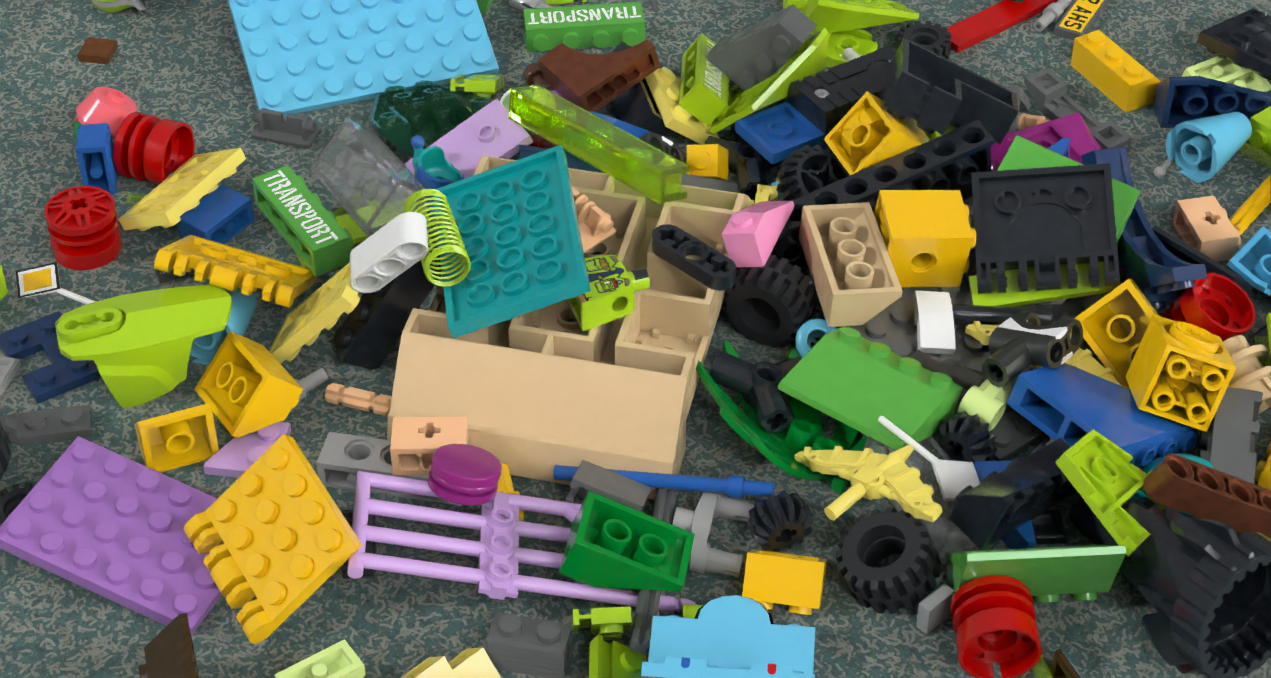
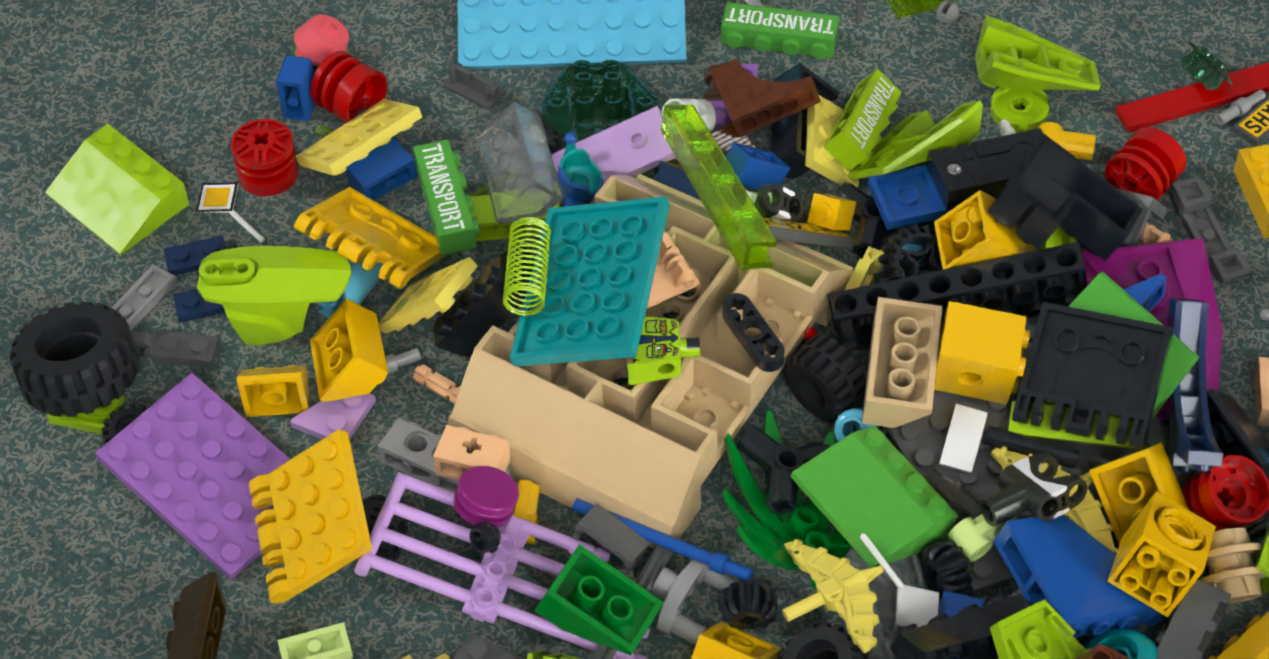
camera: 20 degrees right, 10 degrees up
(388, 252) = (479, 273): white beam -> none
(475, 517) = (485, 537): none -> black plate
(480, 84) = (657, 77): lime plate -> none
(754, 232) = (827, 311): bright pink slope -> none
(761, 48) = (918, 105): dark grey wedge -> none
(933, 37) = (1100, 107): black tyre -> none
(999, 57) = (1147, 163): none -> red wheel

